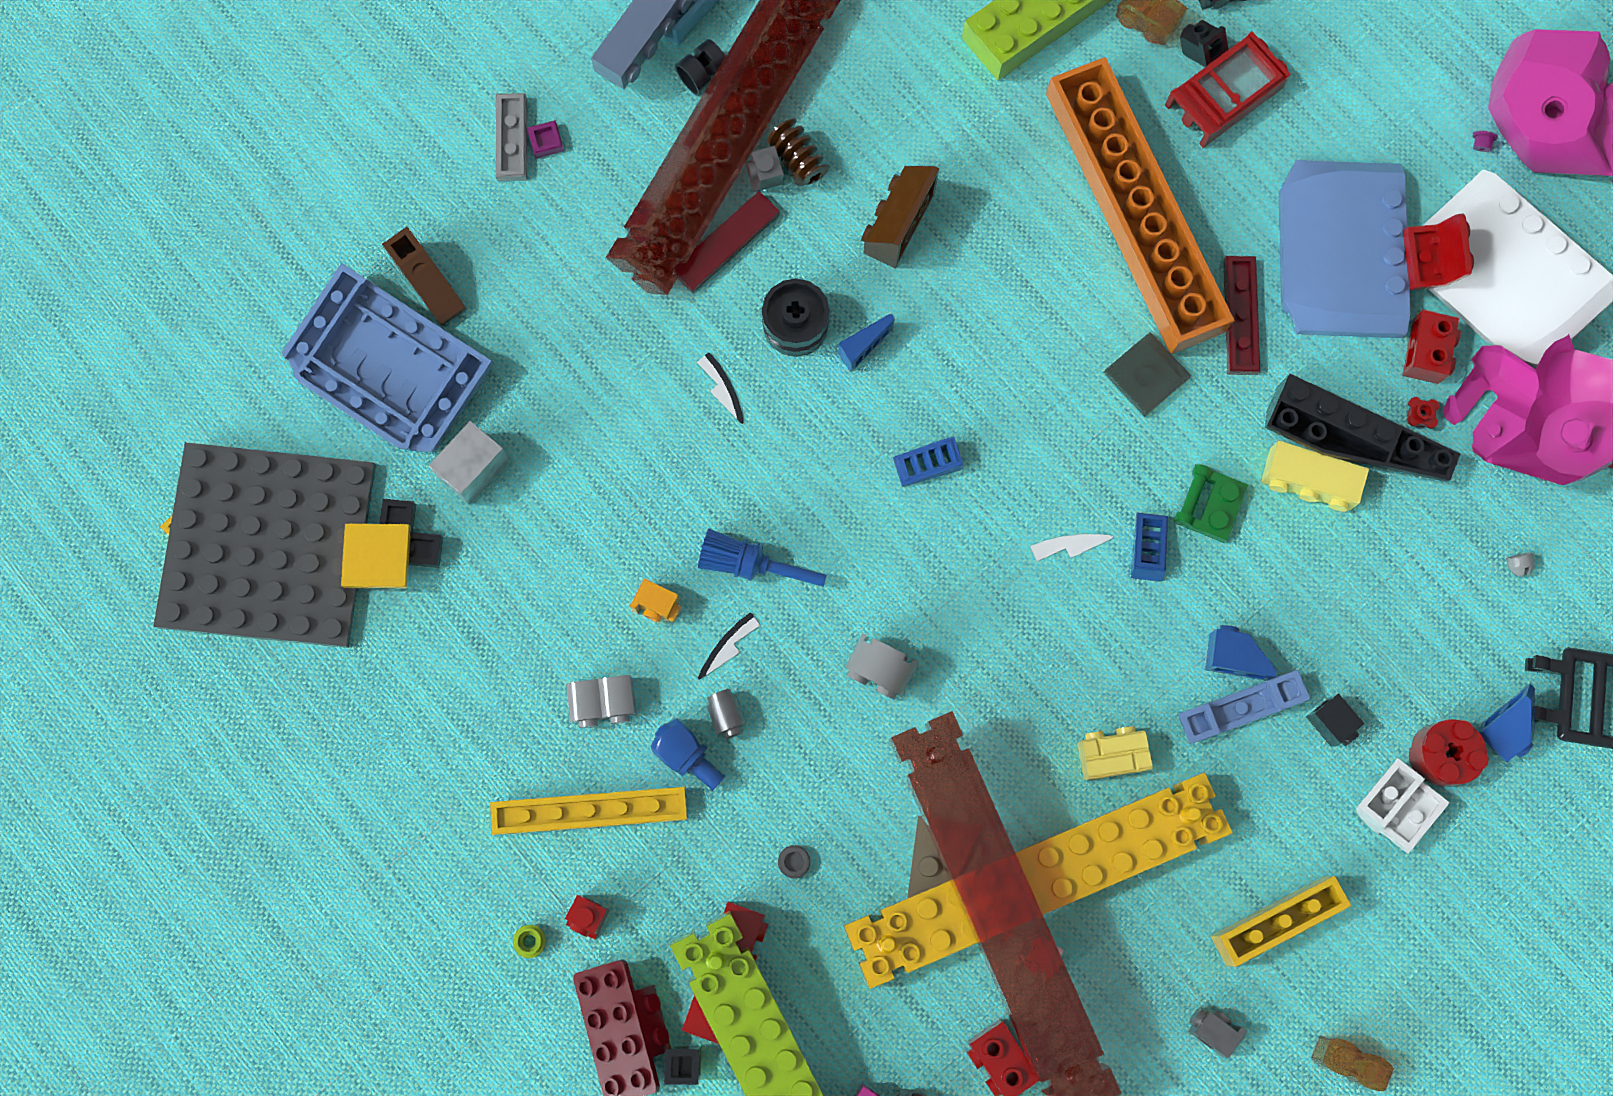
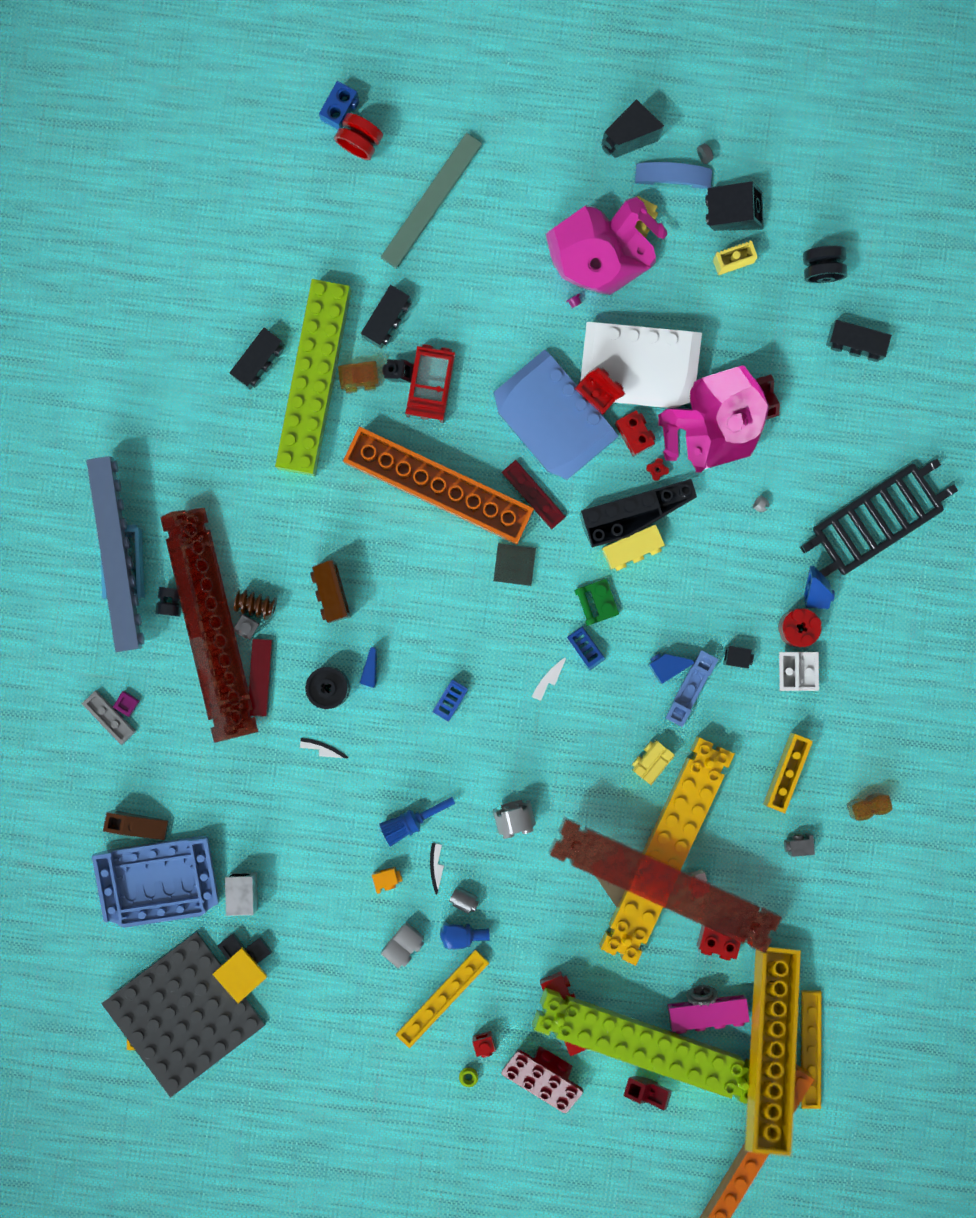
camera: 35 degrees left, 10 degrees up
(683, 1065) = (584, 1069): black brick -> none
(794, 861) = (552, 937): dark grey tile -> none

